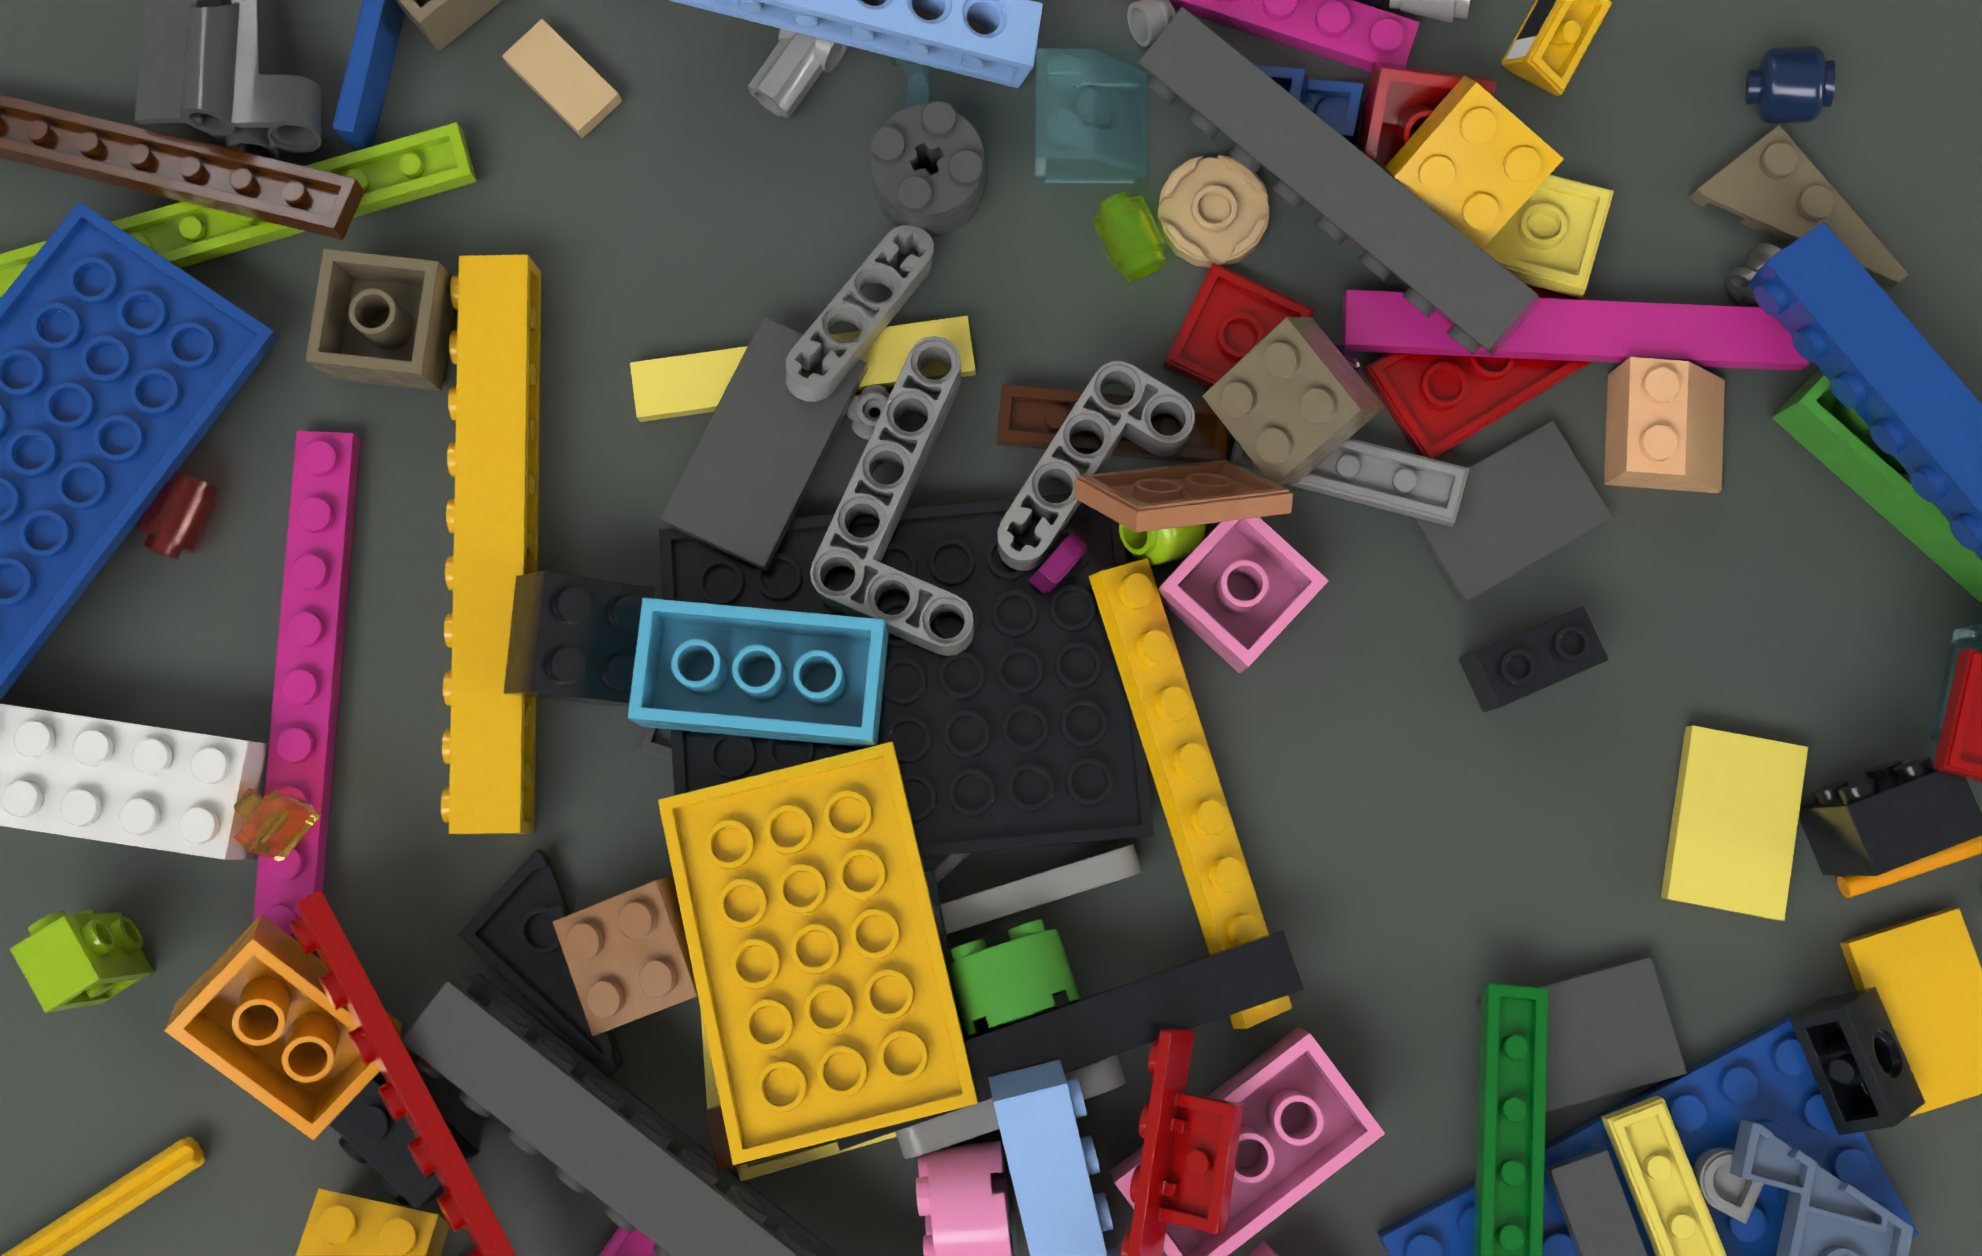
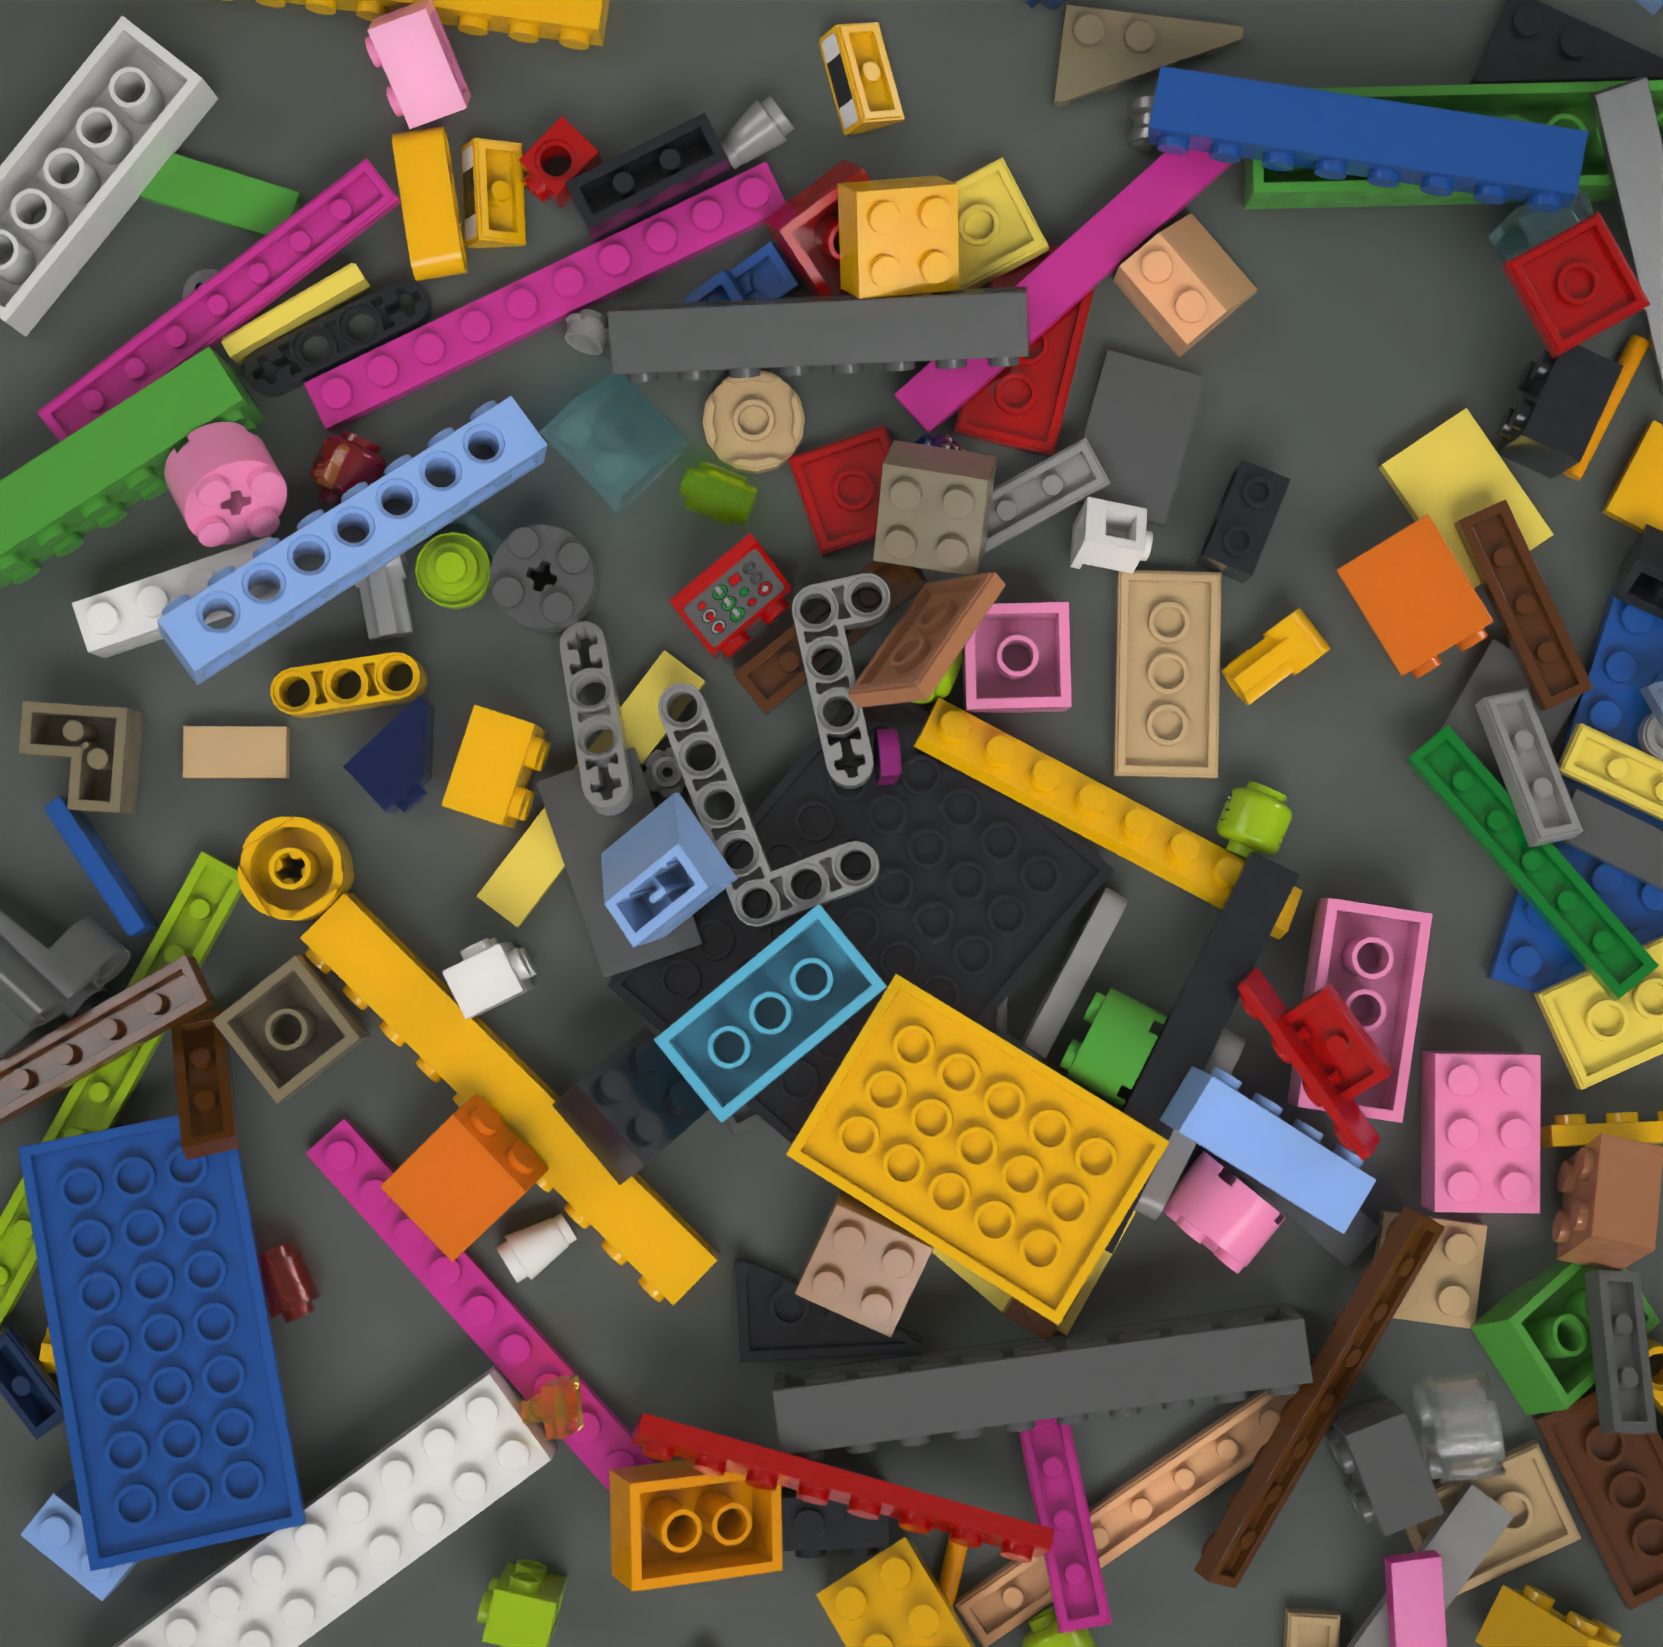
camera: 45 degrees left, 5 degrees up
(261, 298) = (204, 1087): none -> reddish brown plate
(391, 566) = (464, 1177): none -> orange brick
(393, 680) = (535, 1247): none -> white cone
(513, 175) = (267, 860): none -> yellow brick
(570, 428) = (489, 976): none -> white brick
(678, 198) = (398, 759): none -> clear blue slope
(680, 88) = (324, 681): none -> yellow beam
(742, 271) = (496, 767): none -> yellow brick
(784, 476) = (662, 872): none -> light blue slope
(863, 96) = (453, 570): none -> lime plate
(1060, 319) = (733, 598): none -> slope
(1309, 910) = (1254, 820): none -> lime head
(1350, 724) = (1167, 674): none -> tan tile
(1413, 567) = (1110, 536): none -> white brick
(1468, 796) = (1283, 651): none -> yellow piece
(1583, 1092) = (1528, 768): none -> light grey tile
(1620, 858) = (1416, 598): none -> orange brick
(1705, 953) = (1523, 605): none -> reddish brown plate

